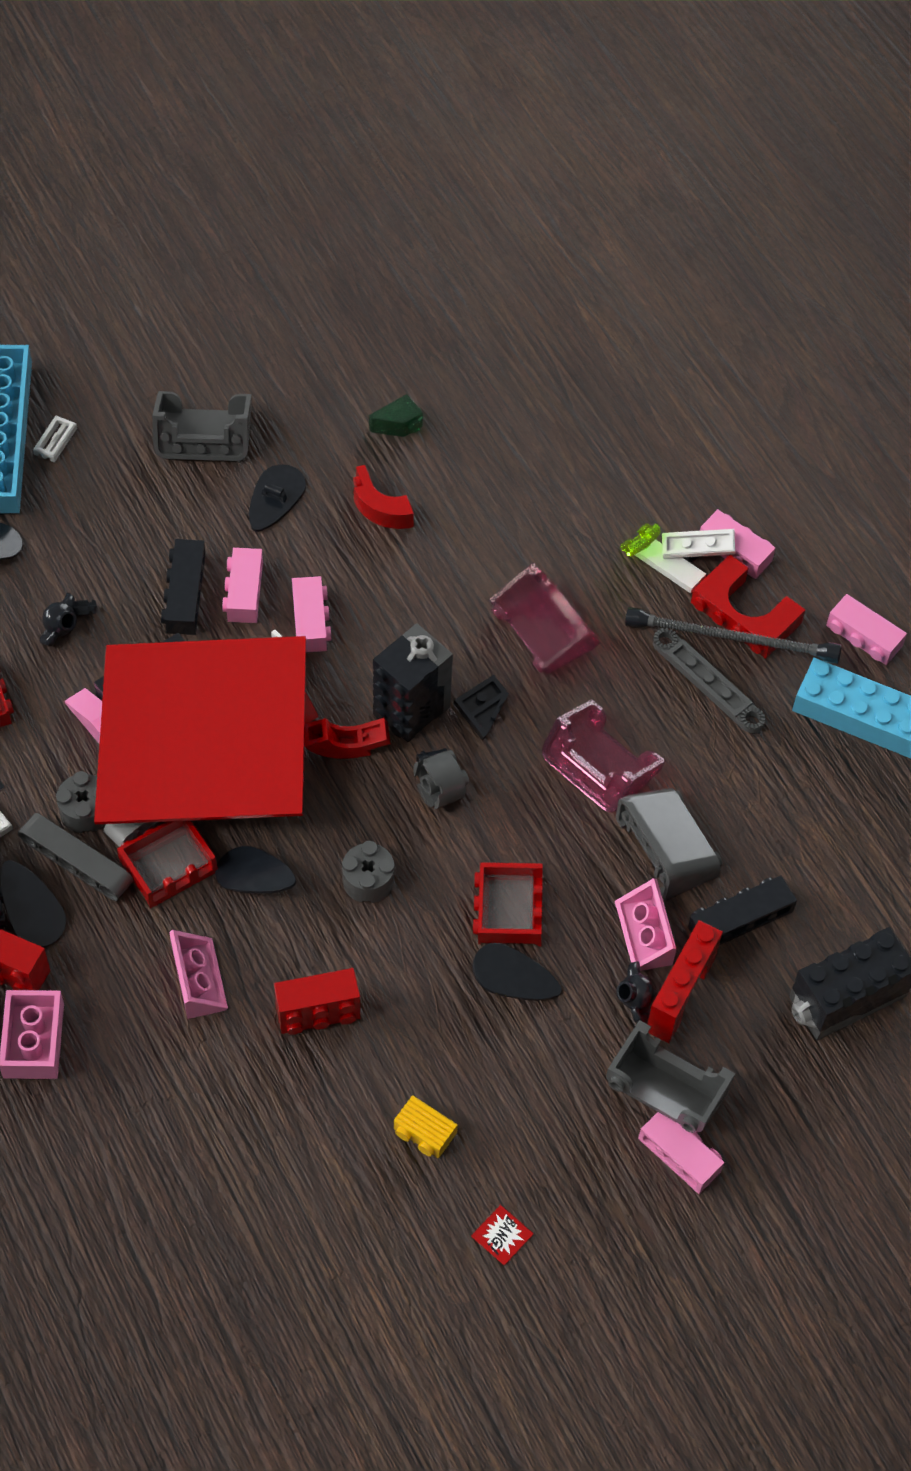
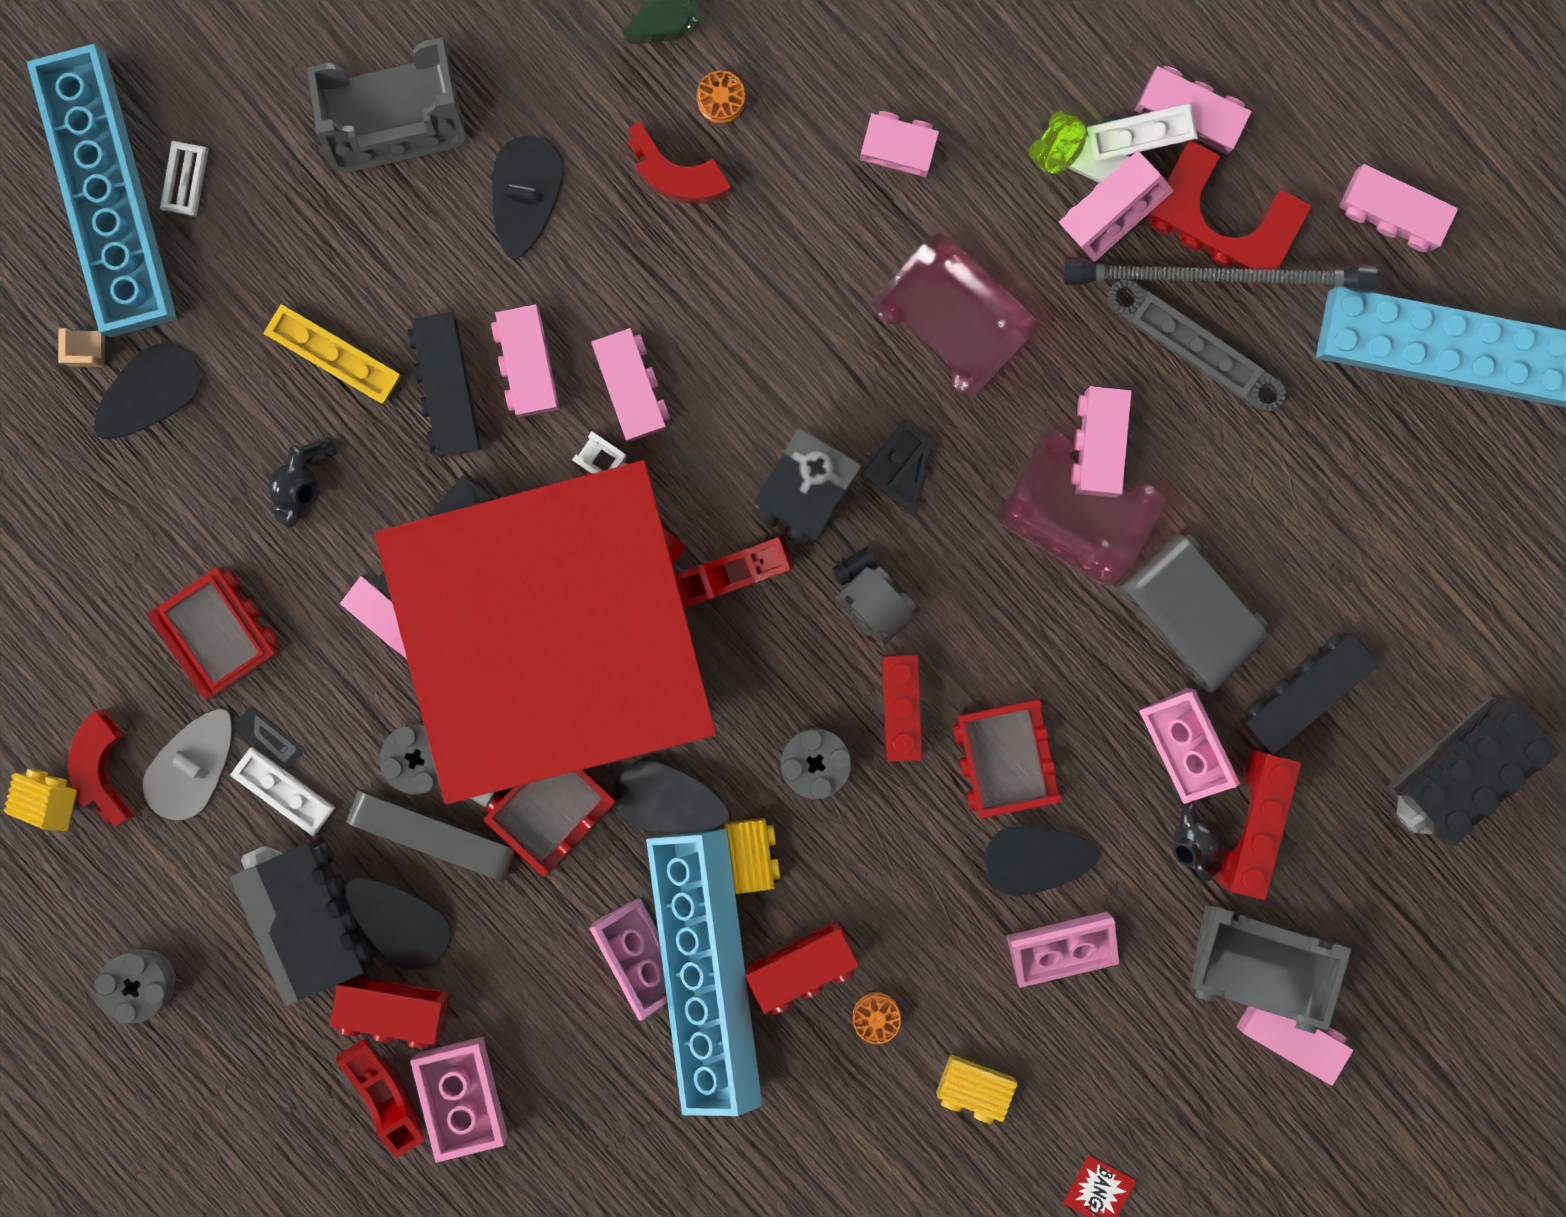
camera: 10 degrees left, 30 degrees up
(115, 553) = (332, 354): none -> yellow plate
(243, 988) = (704, 973): none -> medium azure brick
(302, 924) = (751, 855): none -> yellow brick
(363, 1060) = (876, 1017): none -> orange wheel
(422, 470) = (721, 97): none -> orange wheel
(440, 852) = (901, 708): none -> red arch
(518, 1042) = (1064, 949): none -> bright pink slope
(533, 519) = (899, 143): none -> bright pink brick
(627, 719) = (1101, 441): none -> bright pink brick
(670, 580) = (1116, 205): none -> bright pink brick

